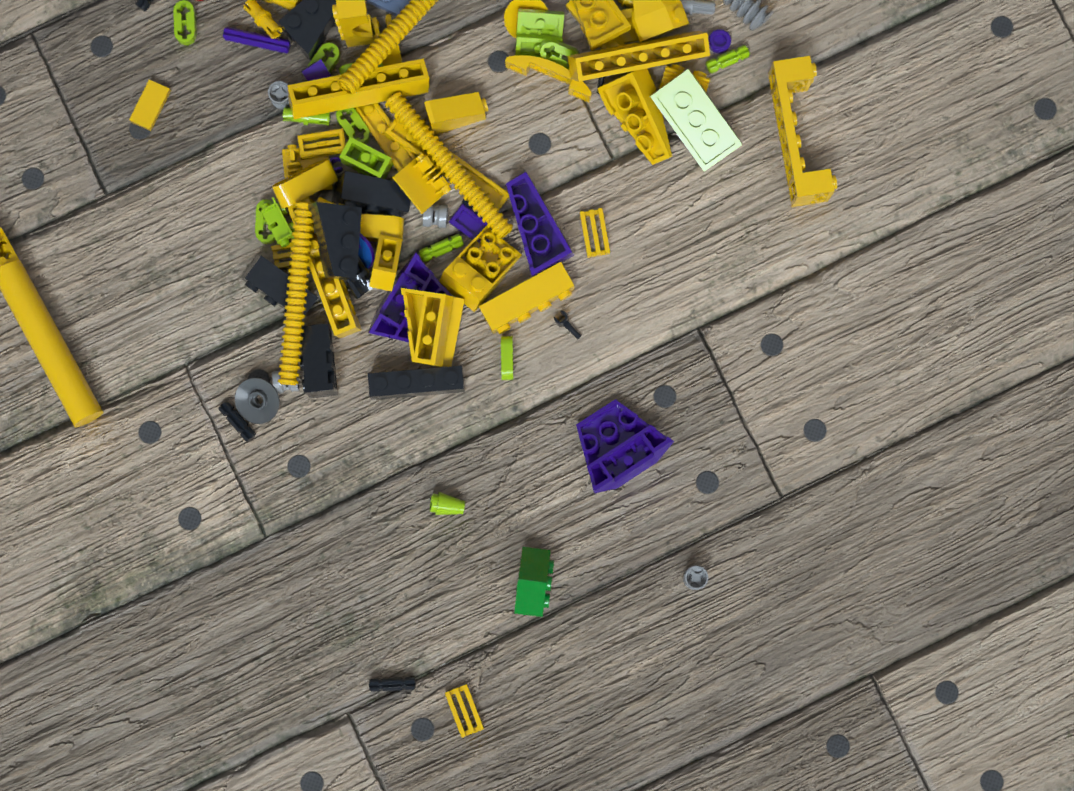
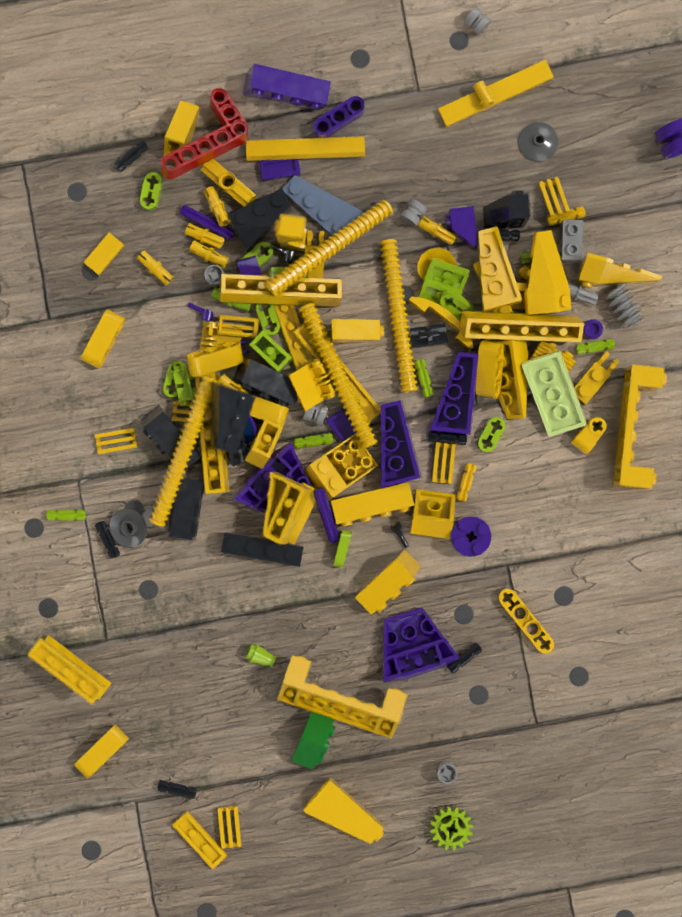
camera: 15 degrees right, 5 degrees up
(173, 198) = (103, 338): none -> yellow beam
(183, 406) = (66, 515): none -> lime axle
(199, 316) = (99, 443): none -> yellow tile
(211, 104) = (155, 267): none -> yellow pin
(231, 575) = (69, 669): none -> yellow fence
(257, 55) = (204, 236): none -> yellow axle
(267, 74) = (209, 254): none -> yellow pin
(283, 139) = (207, 315): none -> dark purple hand
(293, 664) = (101, 751): none -> yellow beam
(357, 49) = (289, 256): none -> black hand
(433, 735) = (199, 839): none -> yellow tile
(478, 324) = (326, 515): none -> dark purple axle
(498, 83) = (398, 315): none -> yellow piece
(538, 95) = (428, 335): none -> black hips
(546, 145) = (424, 378): none -> lime axle
(551, 533) = (339, 707): none -> yellow plate
(569, 381) = (388, 583): none -> yellow wedge
(587, 655) = (342, 811): none -> yellow slope
(591, 161) = (458, 398): none -> dark purple wedge
(591, 203) = (449, 438): none -> black axle
(598, 292) = (433, 514): none -> yellow slope
(616, 112) = (489, 369): none -> yellow beam
(626, 245) = (466, 482): none -> yellow axle
(633, 185) = (487, 431): none -> lime beam
(656, 294) = (480, 530): none -> dark purple brick
(679, 444) = (465, 657): none -> black axle
(718, 651) = (443, 824): none -> lime gear
(737, 94) = (594, 379): none -> yellow hinge
(739, 380) = (526, 620): none -> yellow beam
(748, 159) = (586, 437): none -> yellow piece

